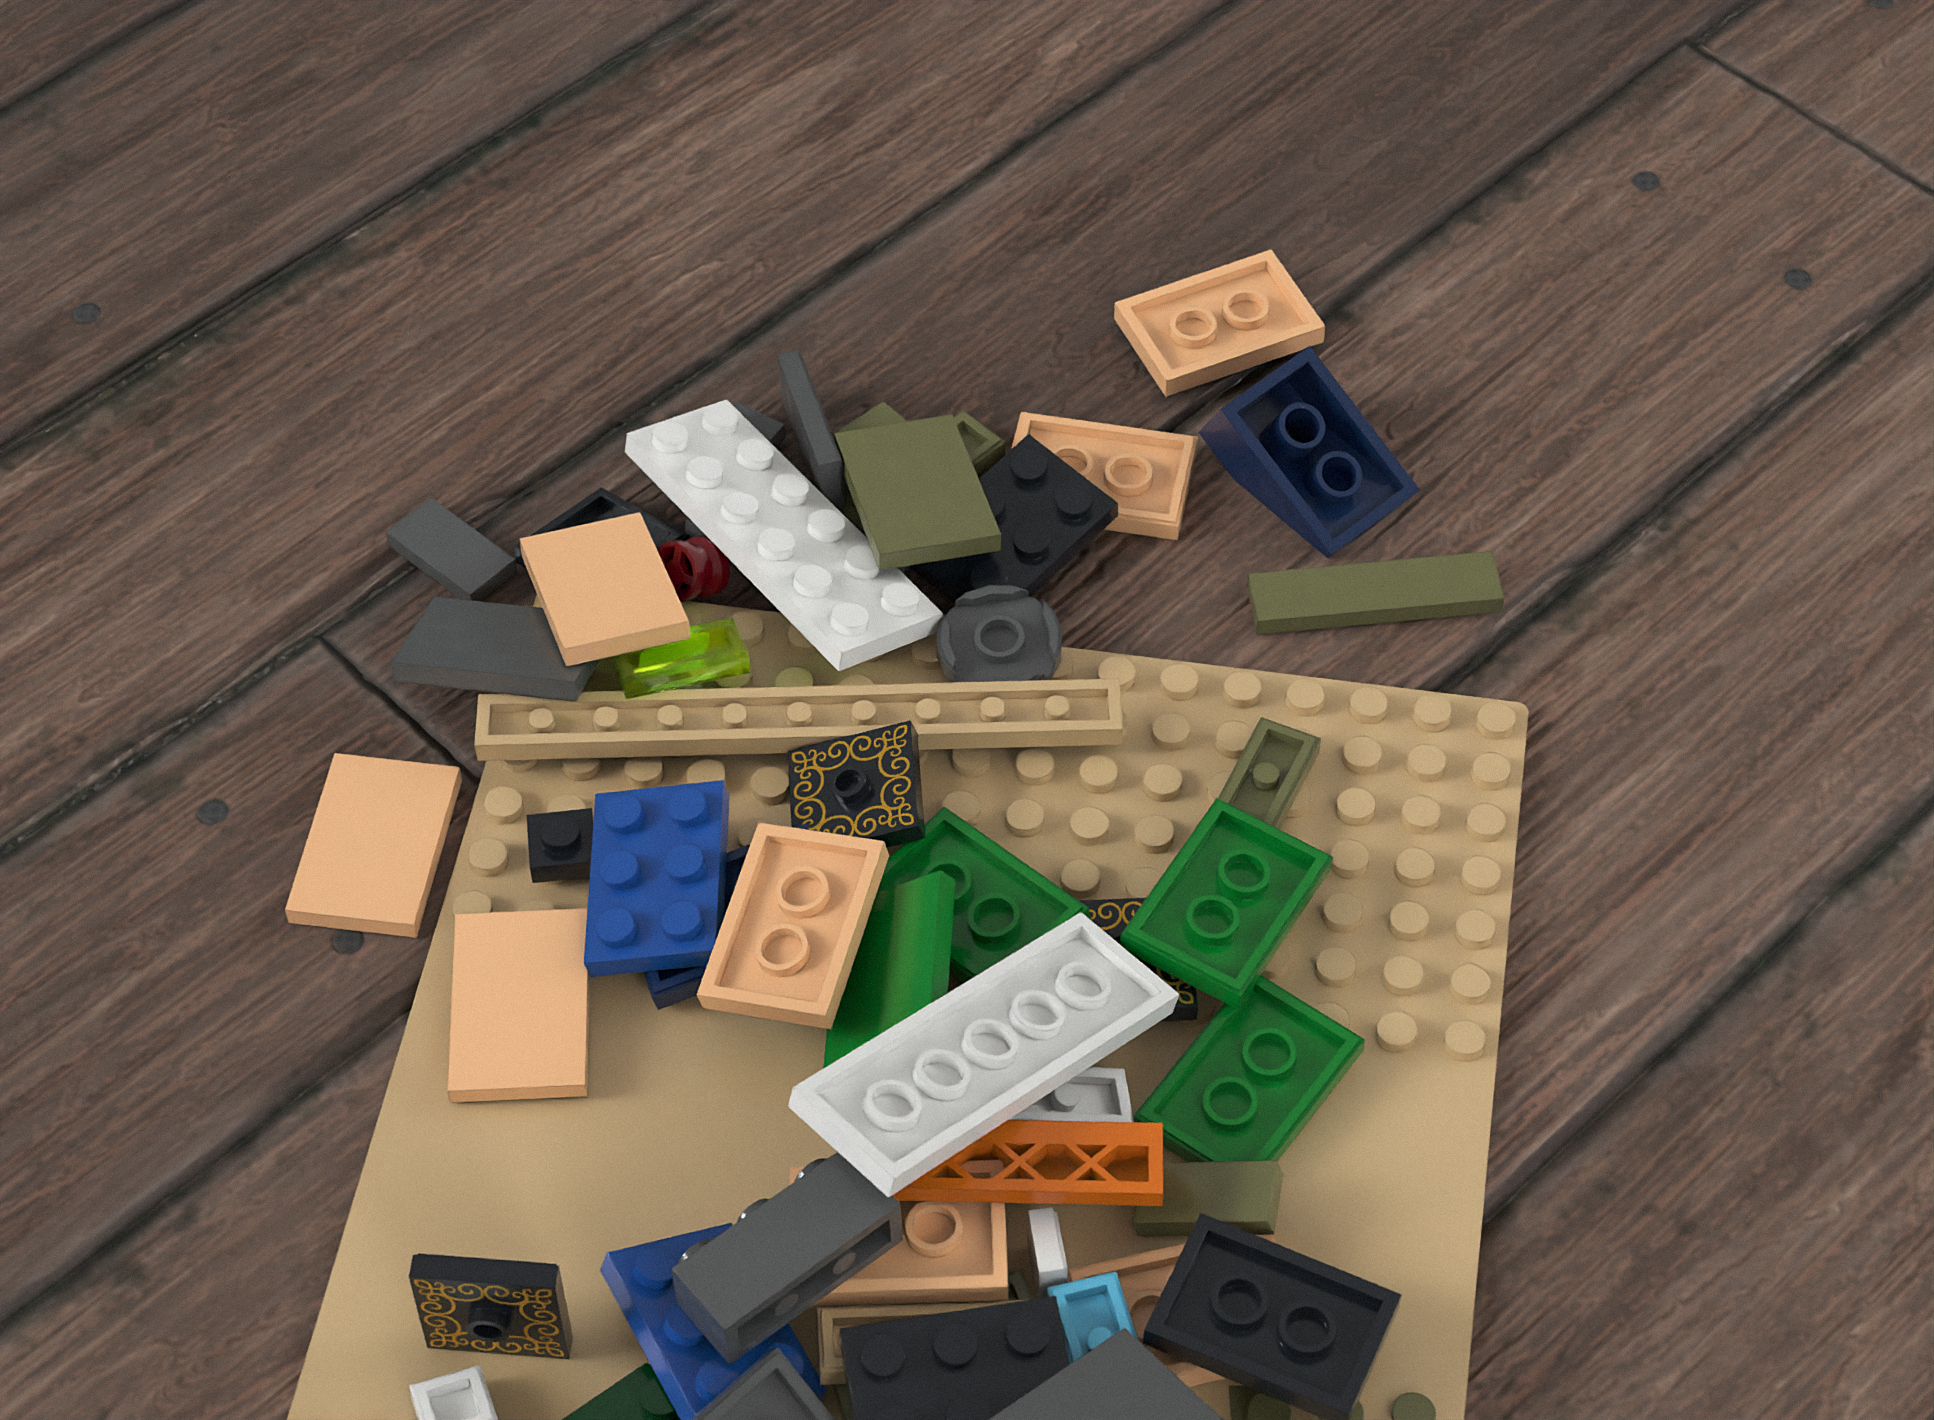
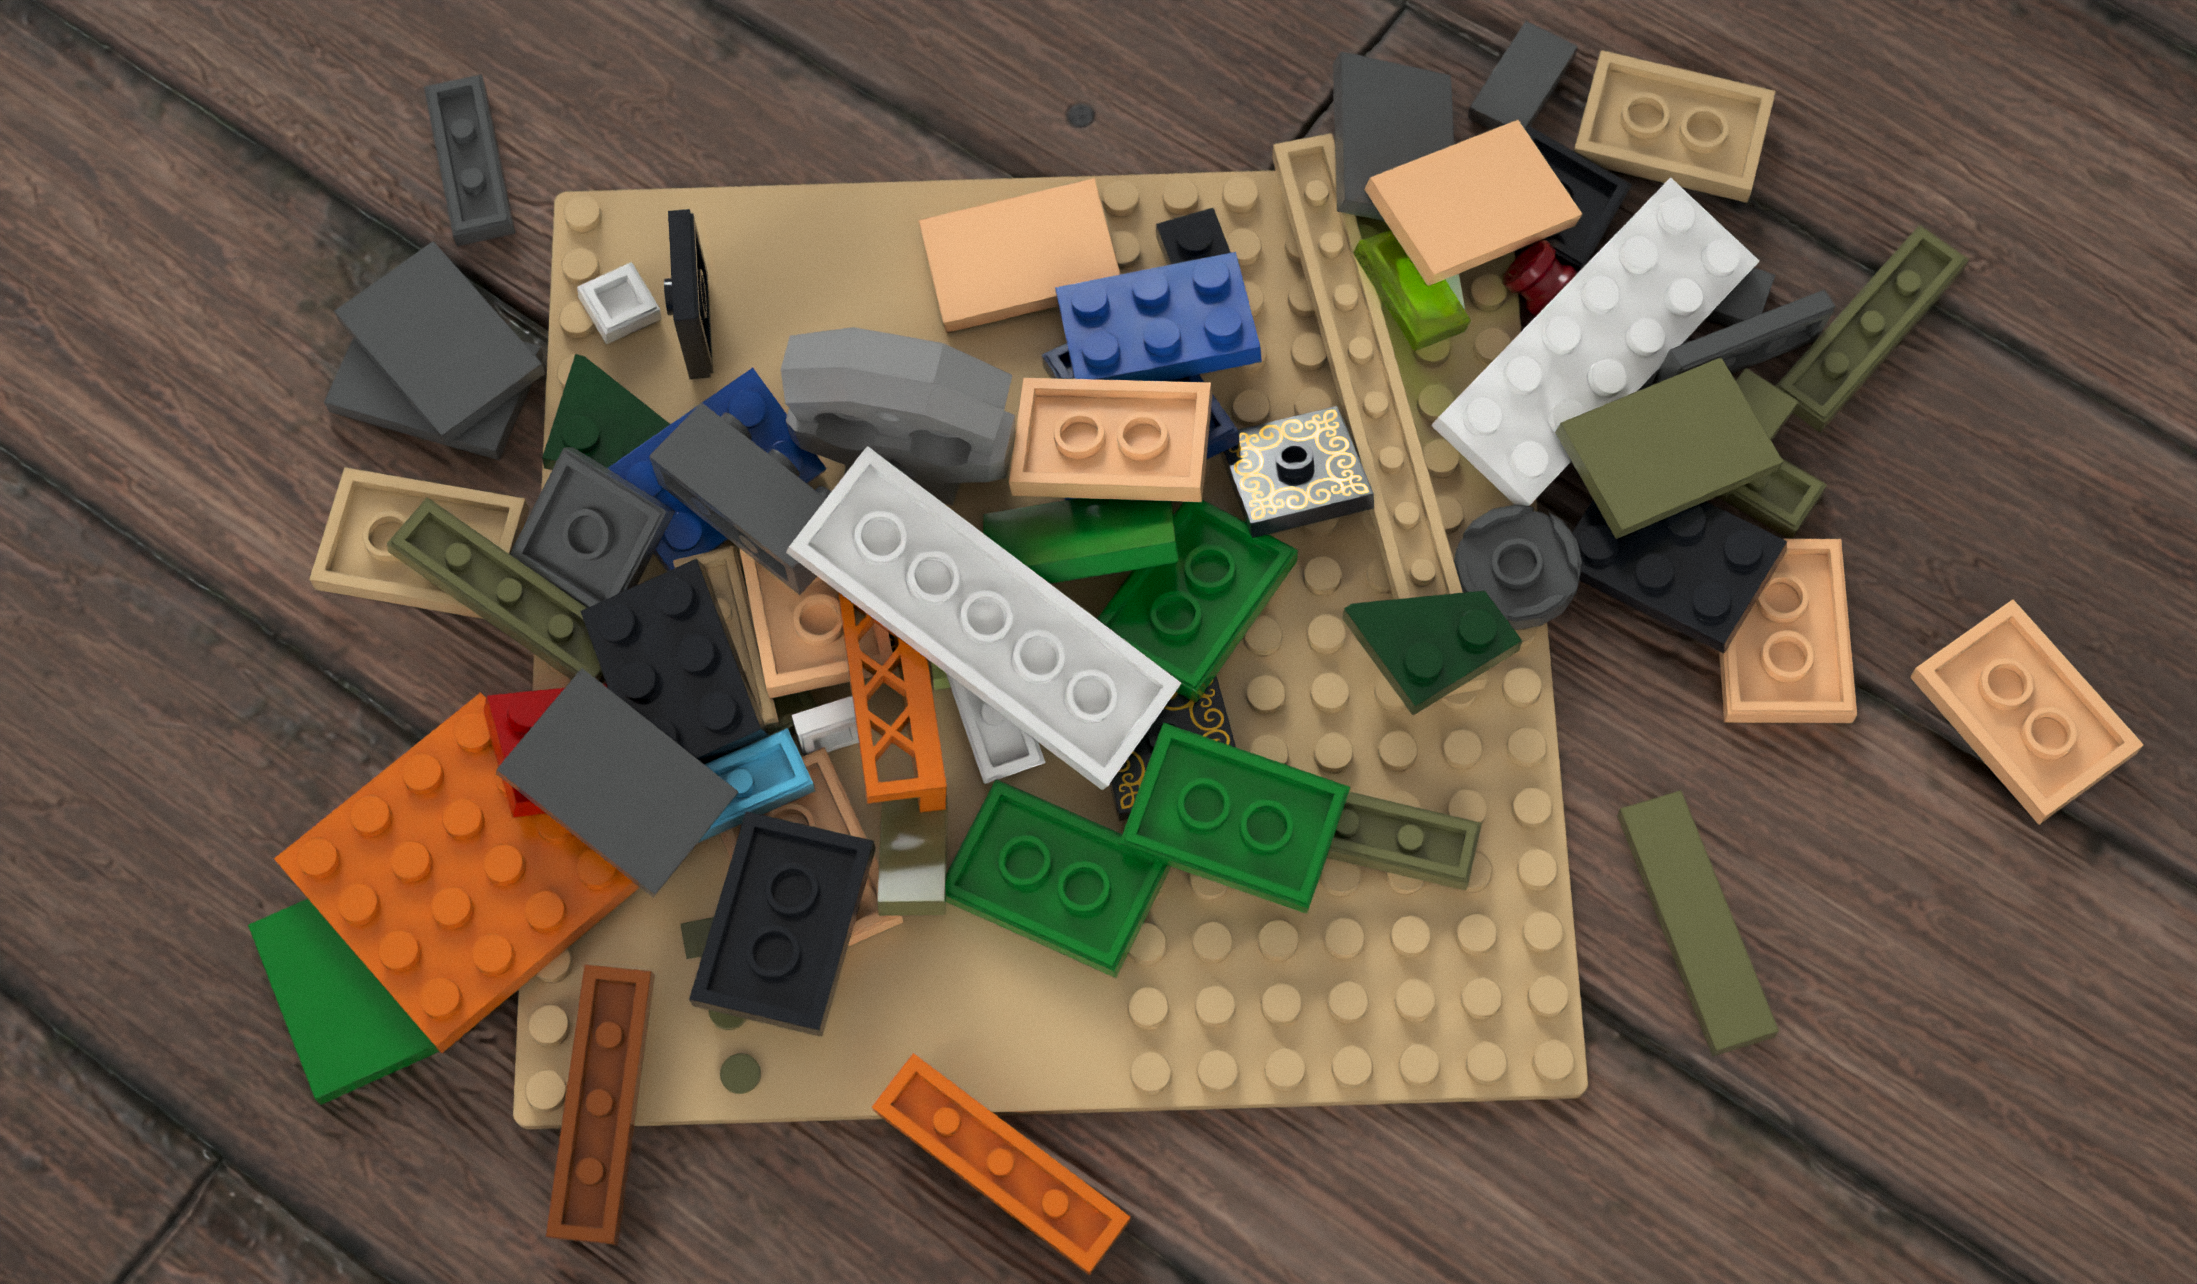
camera: 80 degrees right, 15 degrees up
(374, 845) = (1178, 106): light nougat tile -> none
(547, 442) = (1674, 126): none -> tan plate
(721, 1096) = (904, 398): none -> light grey brick
(782, 324) = (1871, 327): none -> olive tile
(1079, 708) = (1432, 642): none -> dark green wing
(1309, 454) = (1853, 828): dark blue slope -> none
(1546, 1177) = (1001, 1163): none -> orange plate

